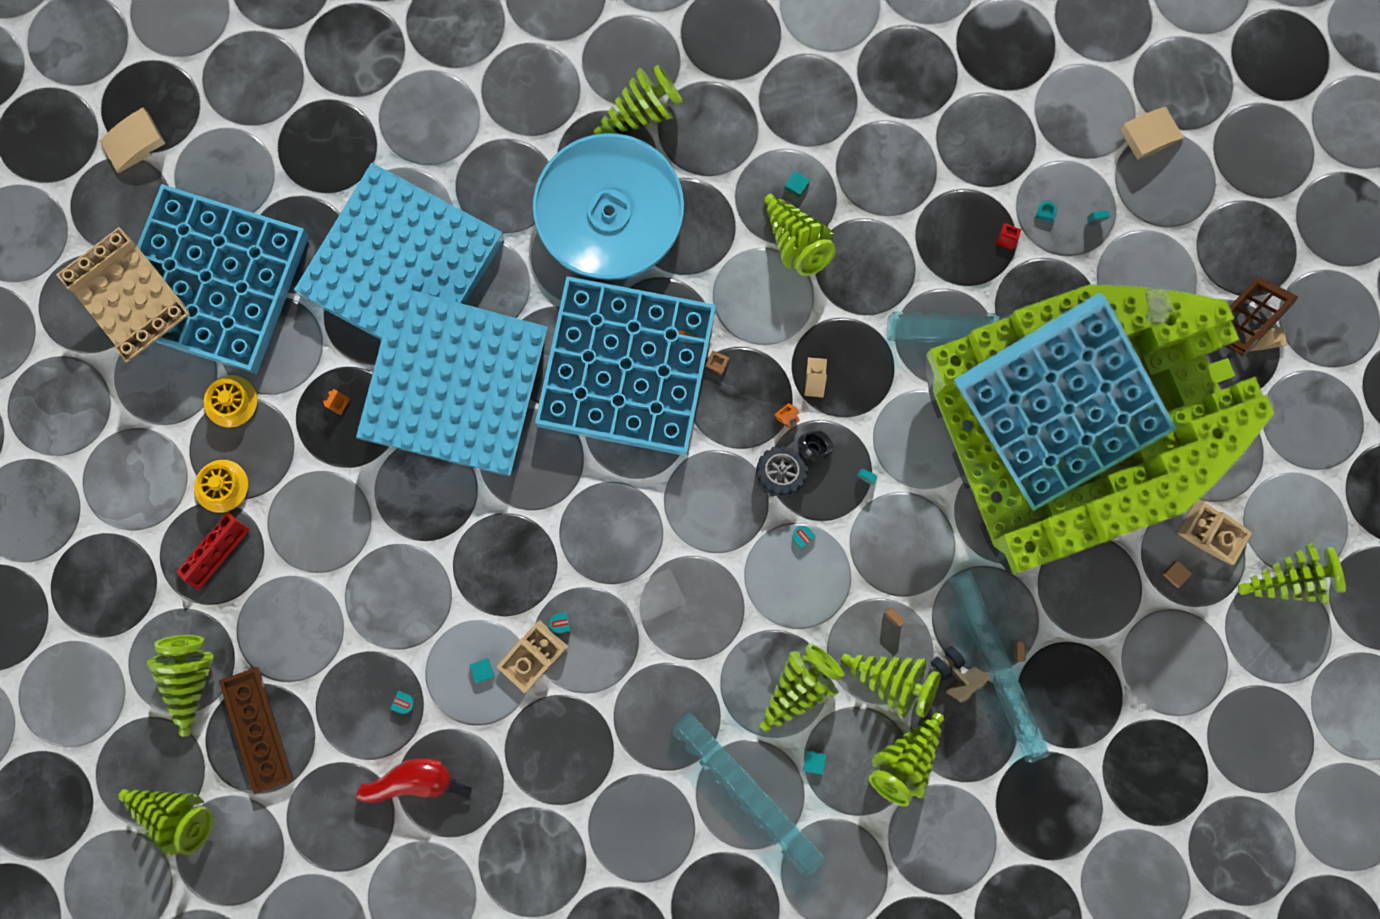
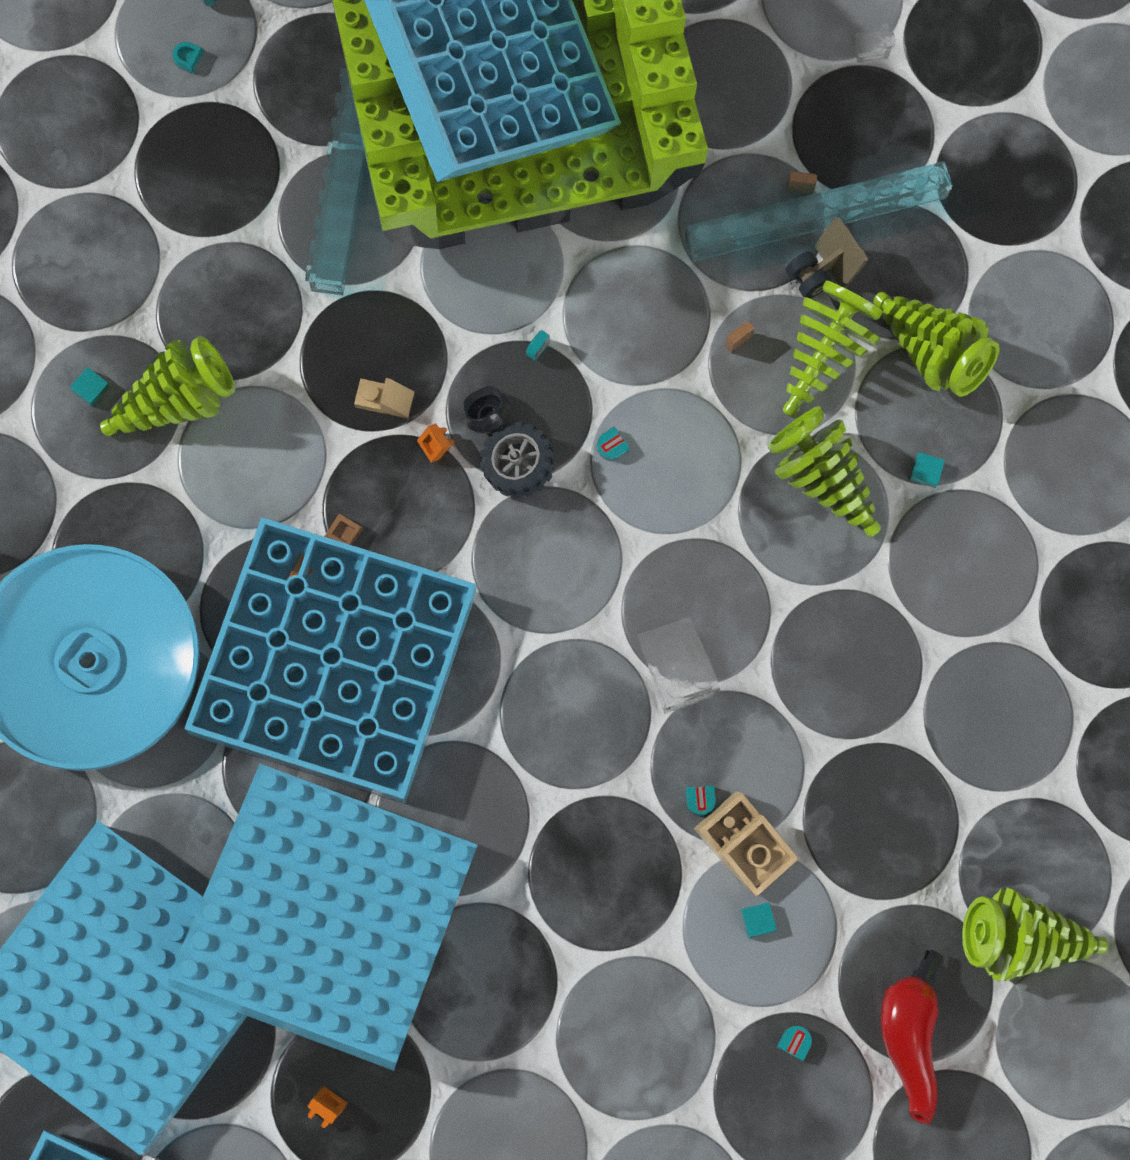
camera: 85 degrees left, 5 degrees down
(482, 854) = (1022, 937): none -> lime plant
(750, 795) = (962, 562): clear light blue brick -> none
(1008, 236) = (216, 111): red slope -> none

